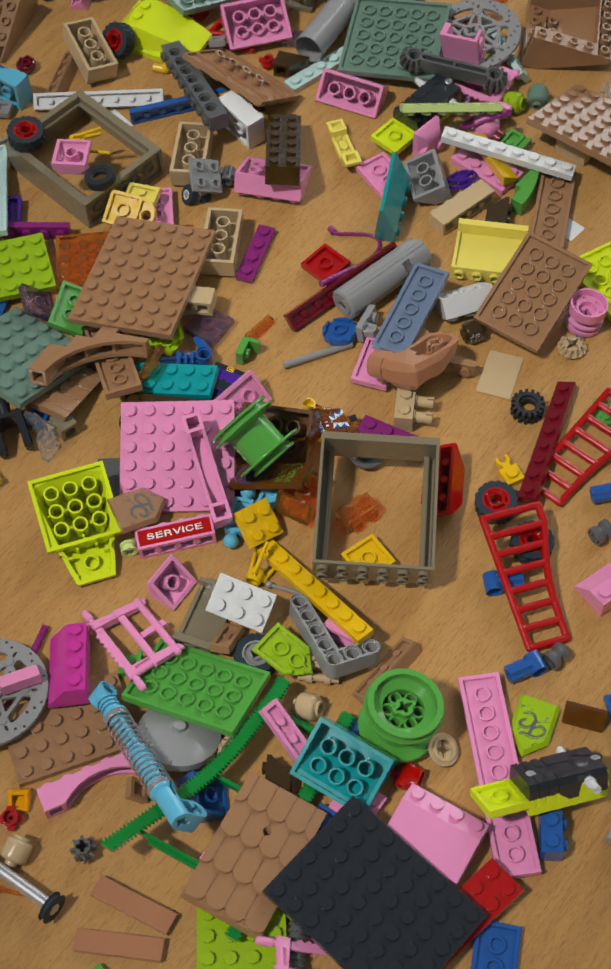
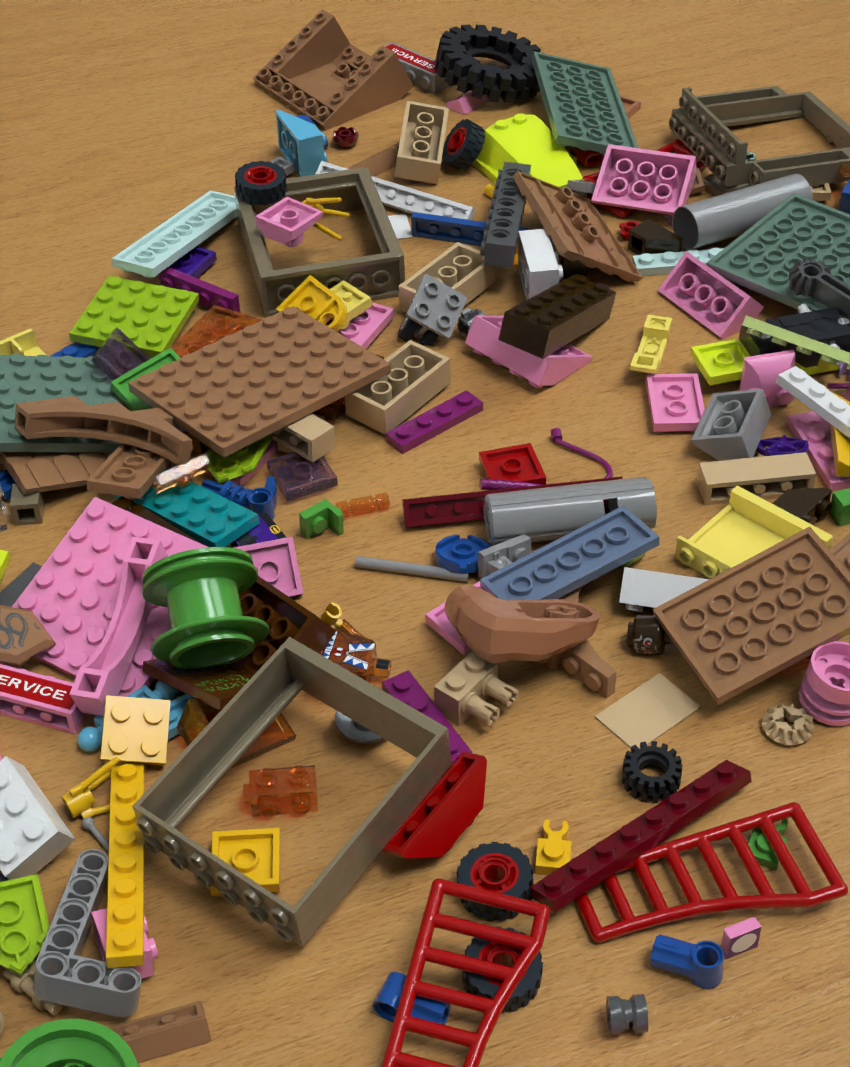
camera: 30 degrees right, 15 degrees down
(103, 184) = (303, 255): black tyre -> none
(392, 201) = (653, 420): teal slope -> none

